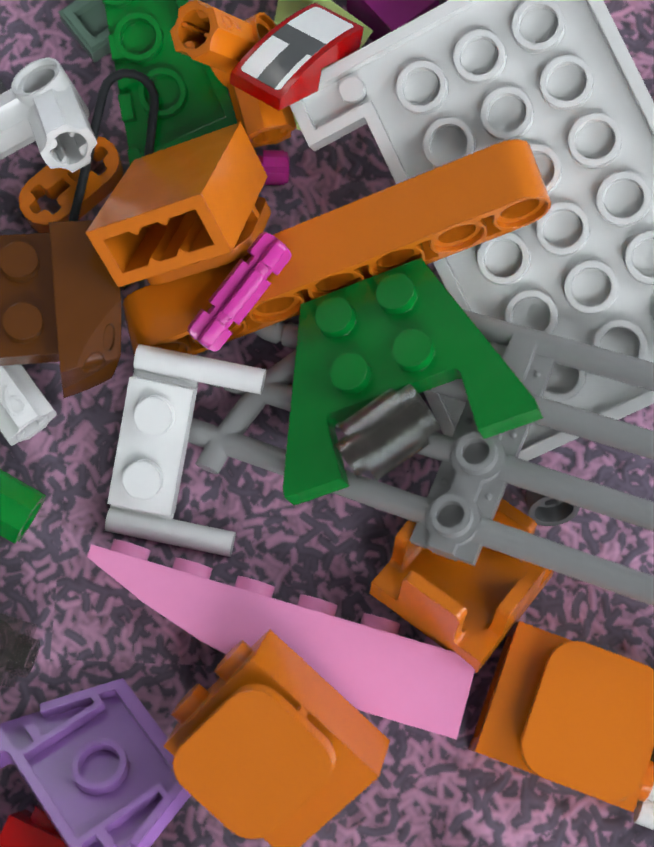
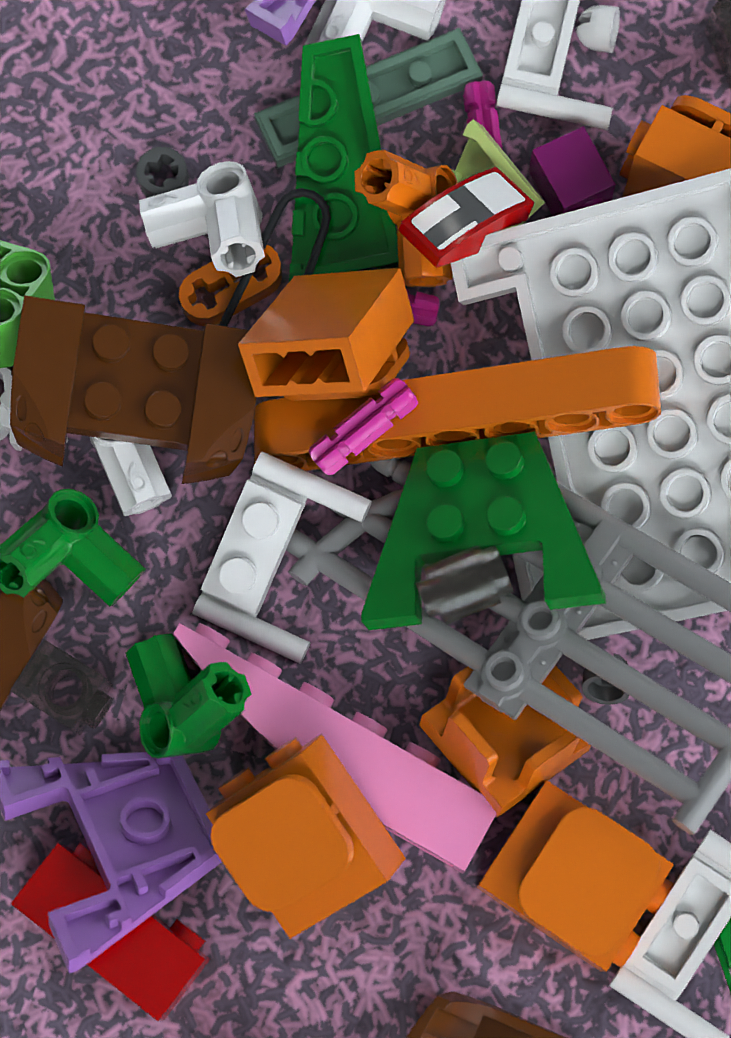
camera: 15 degrees right, 0 degrees up
(112, 636) = (180, 711): none -> green piece

